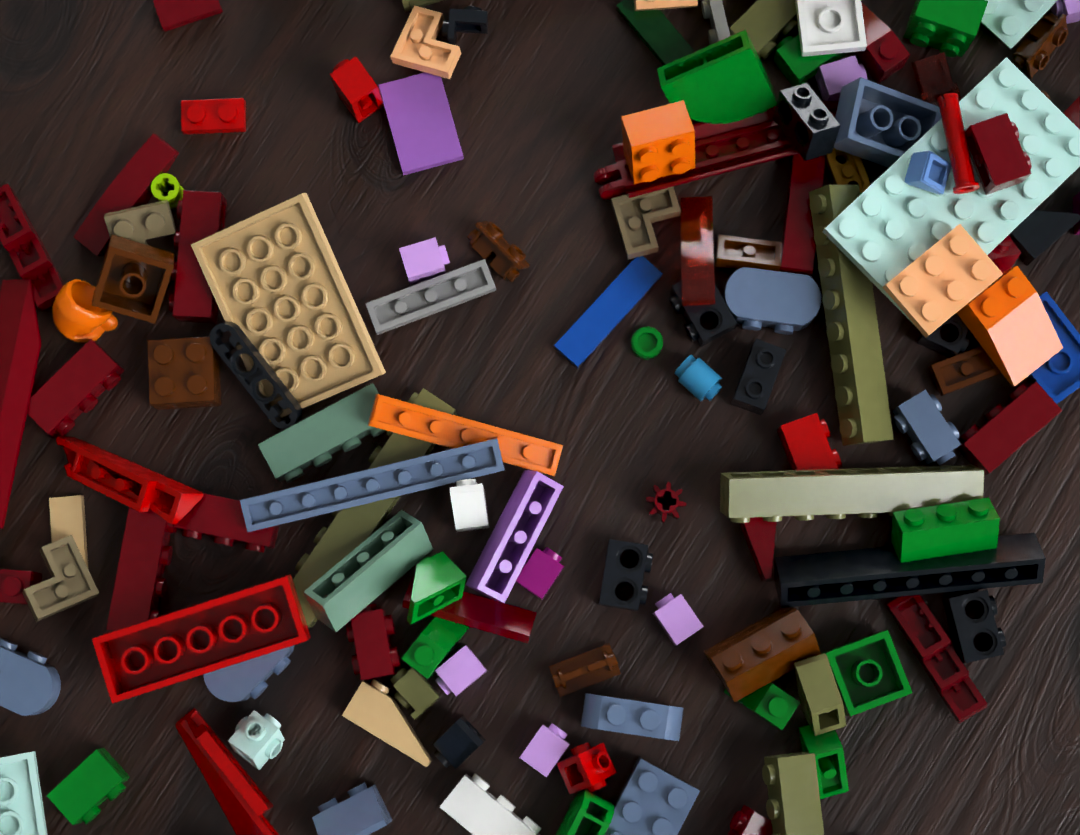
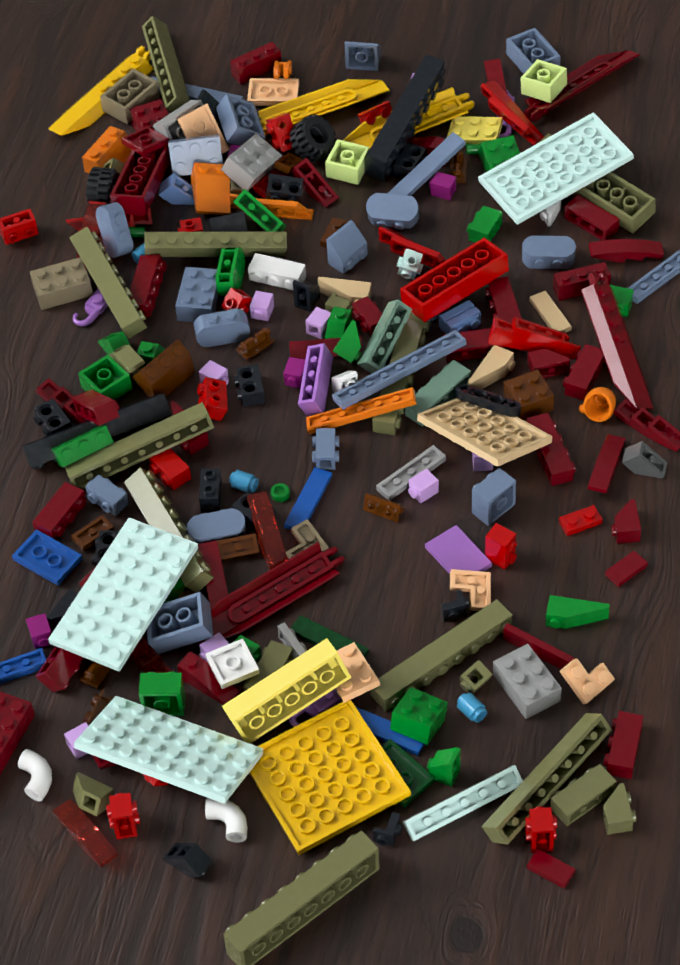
camera: 160 degrees right, 30 degrees down
(69, 178) = (644, 461): none -> dark grey slope
(69, 583) = (538, 290): dark tan plate -> none
(128, 432) = (548, 362): none -> dark red slope
(133, 279) = (577, 418): reddish brown brick -> none
(141, 222) = (588, 444): dark tan plate -> none
(149, 75) = (627, 524): none -> dark red slope
(161, 185) = (586, 472): lime bush -> none
(212, 457) = (493, 367): none -> tan slope
(213, 581) = (460, 318): none -> medium blue brick
(329, 183) = (493, 496): none -> sand blue brick
(545, 396) = (325, 445): none -> sand blue brick
(658, 142) = (310, 565): orange brick -> none
(673, 496) = (240, 422): dark red gear -> none
(696, 564) = (214, 397): none -> red brick
(720, 81) = (287, 610): green brick -> none
(806, 121) = (227, 605): black brick -> none
(905, 590) = (96, 407): none -> dark red brick
(928, 172) = (146, 584): medium blue slope -> none
(942, 280) = (120, 535): light nougat plate -> none
(957, 144) = (133, 601): red pin -> none
(997, 153) = (108, 602): dark red brick -> none
(1012, 326) = (76, 548): slope -> none

